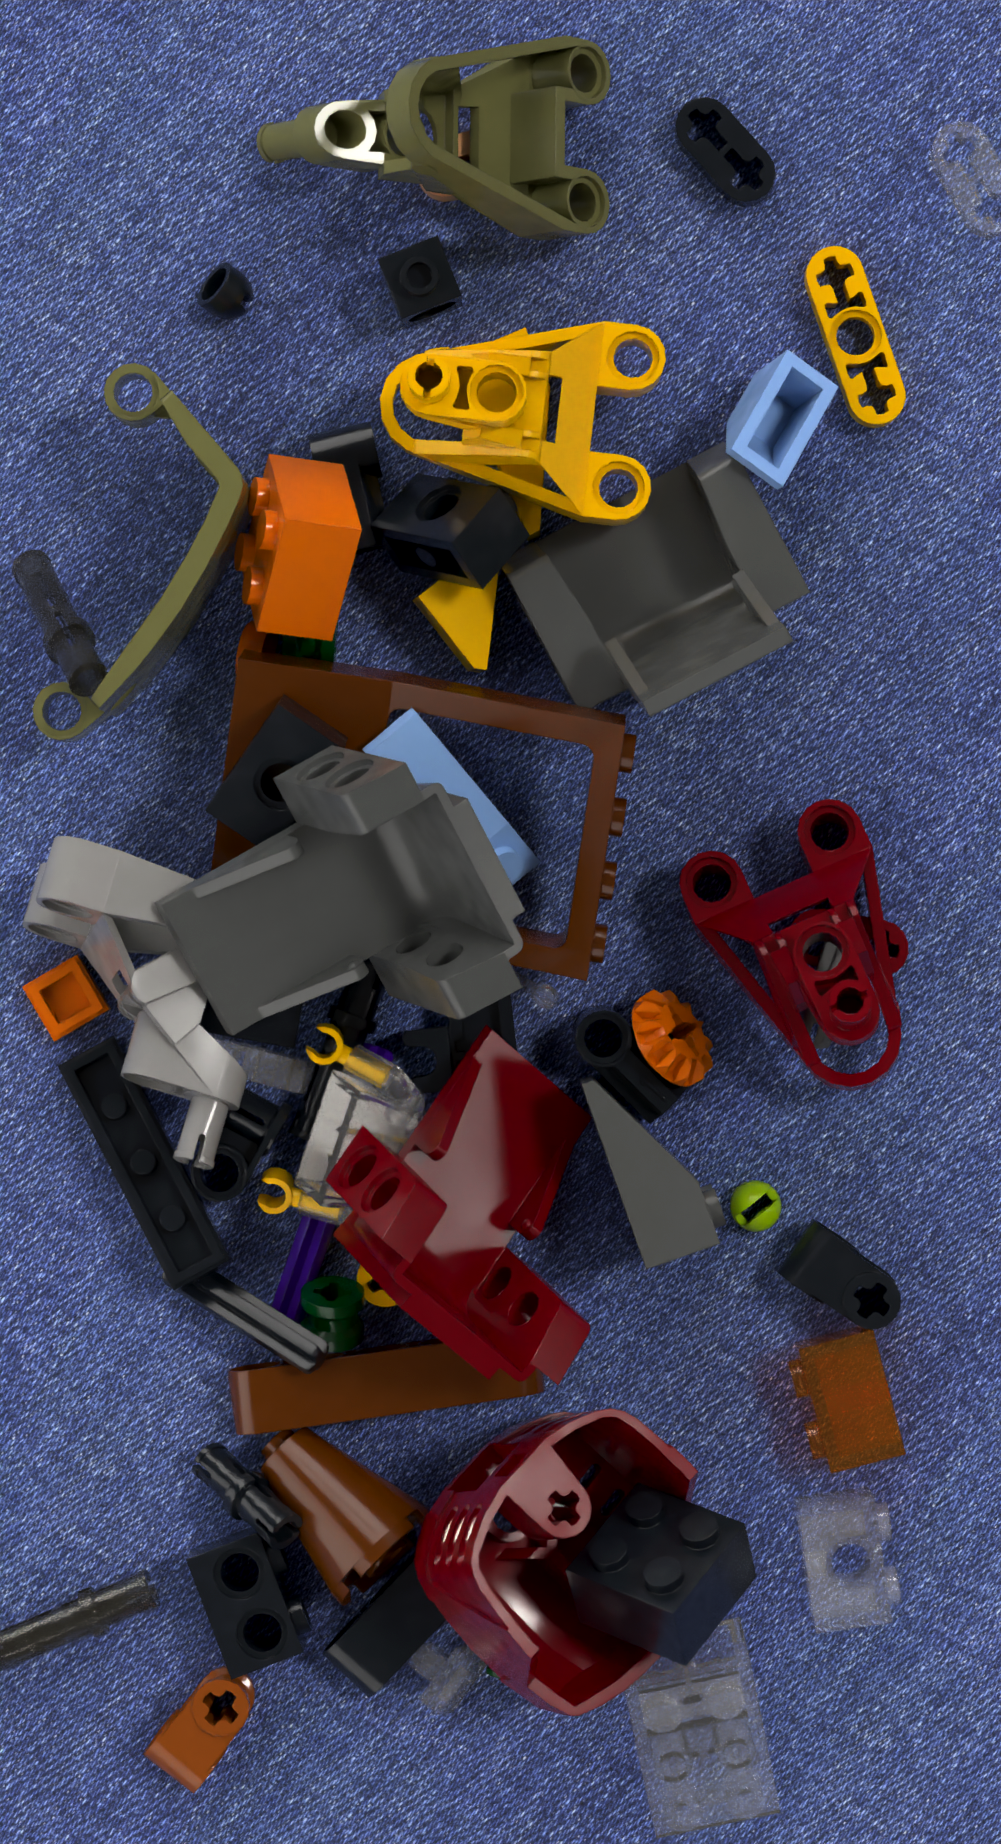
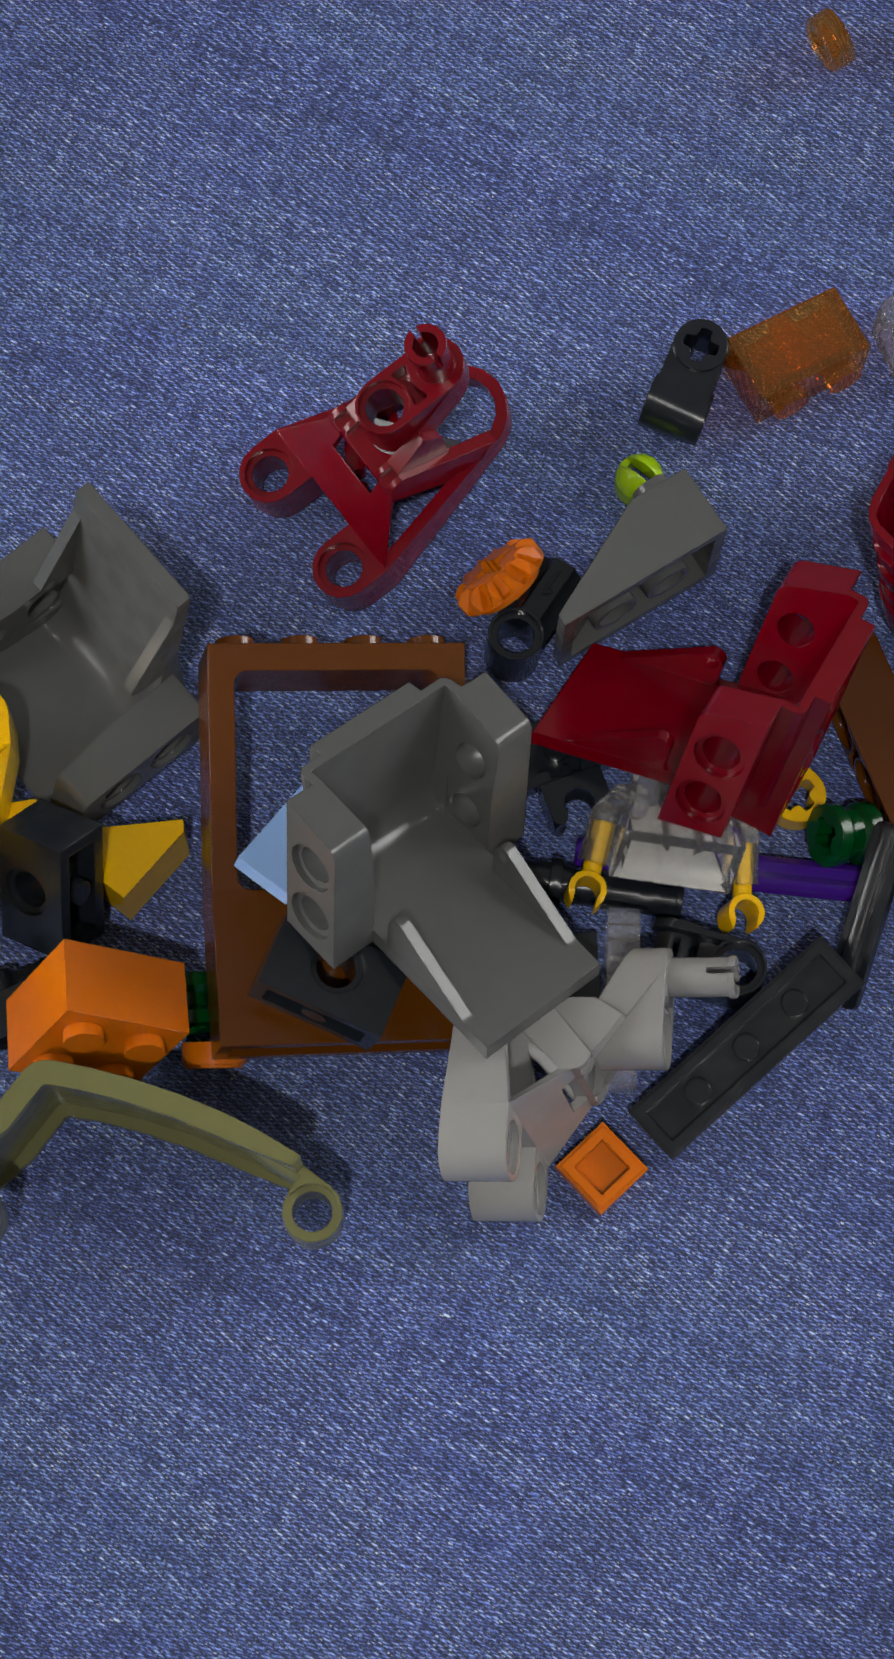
camera: 105 degrees left, 15 degrees down
(78, 662) = (236, 1228): clear smoke pin -> none

